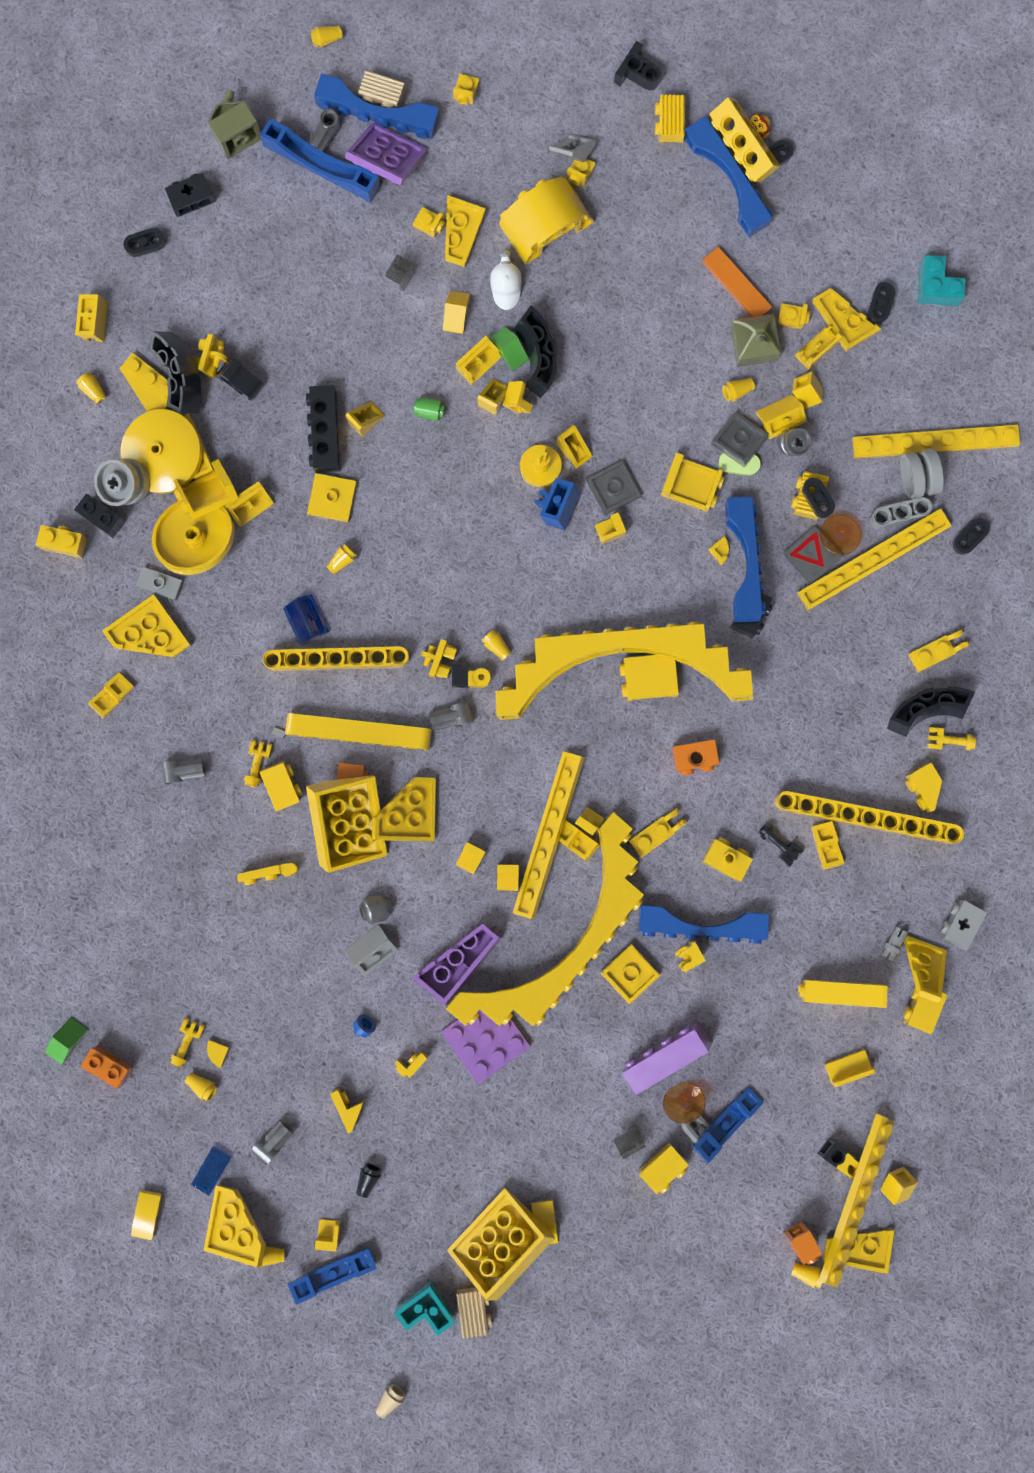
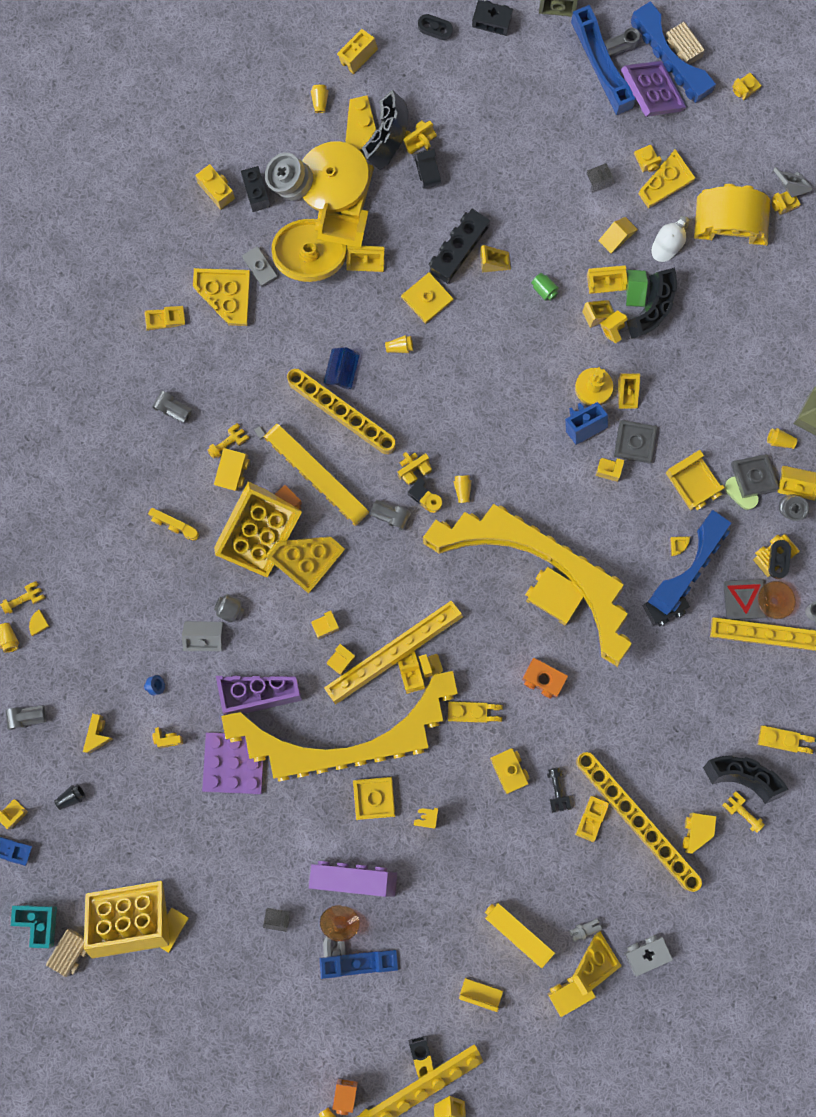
camera: 40 degrees right, 5 degrees down
(663, 1169) = (286, 958): yellow brick -> none
(748, 926) = (487, 831): blue arch -> none

